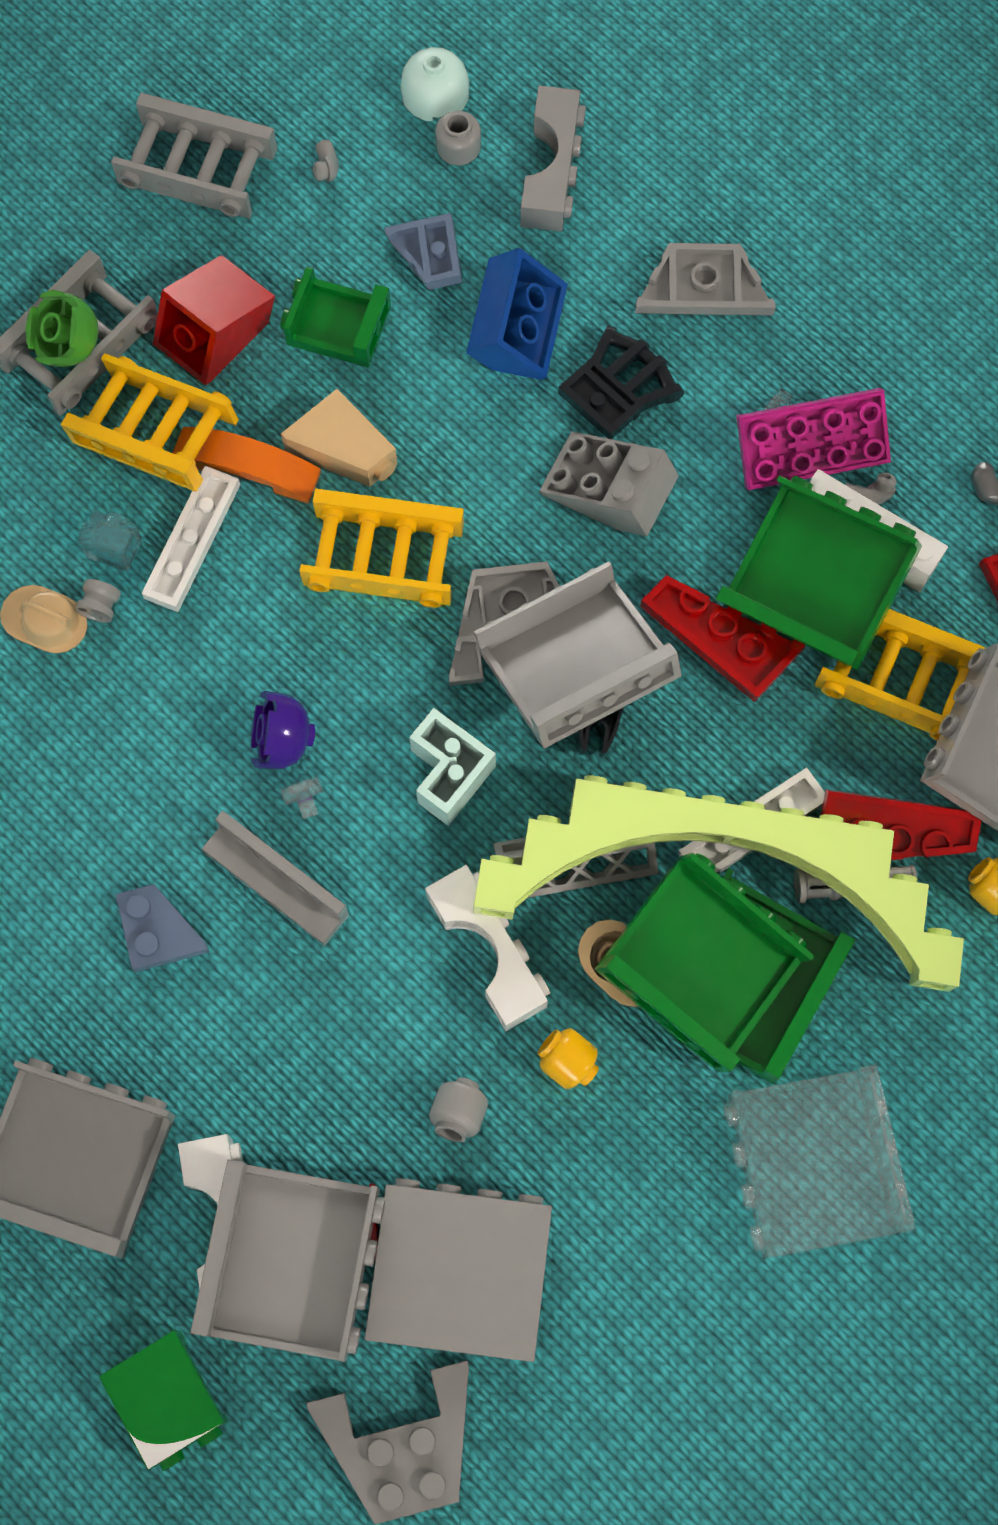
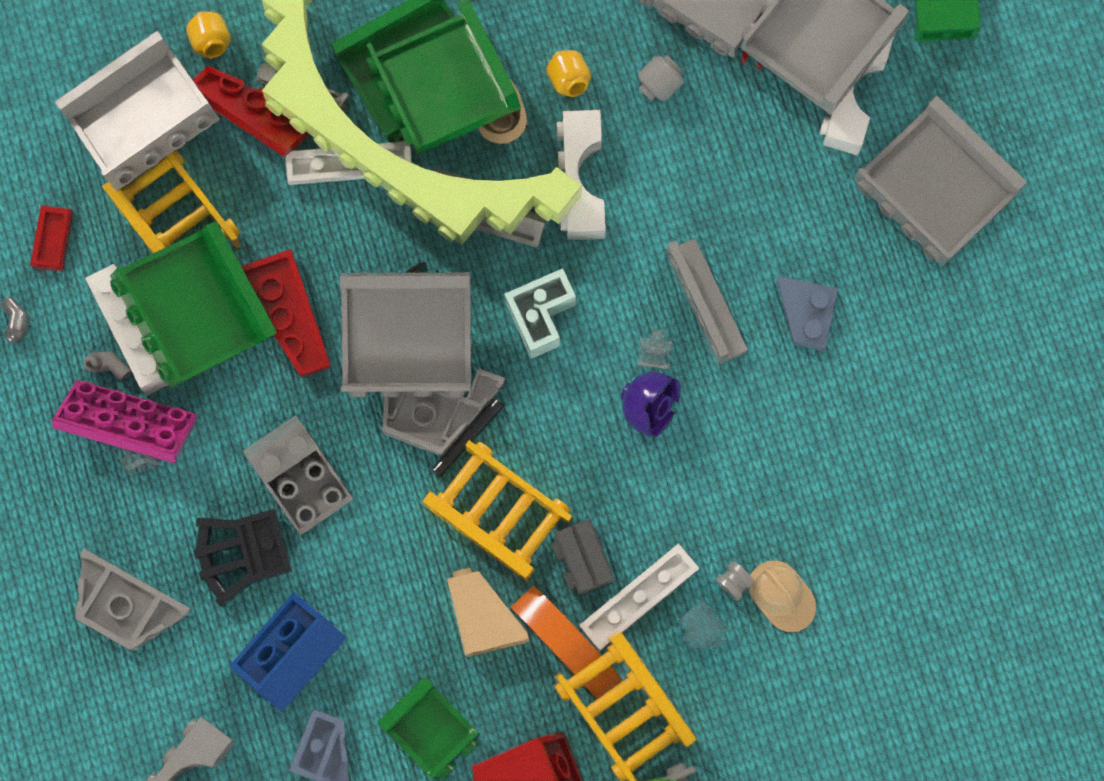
camera: 150 degrees left, 5 degrees up
(268, 545) = (583, 557): none -> dark grey brick
(456, 609) = (470, 434): none -> black bar

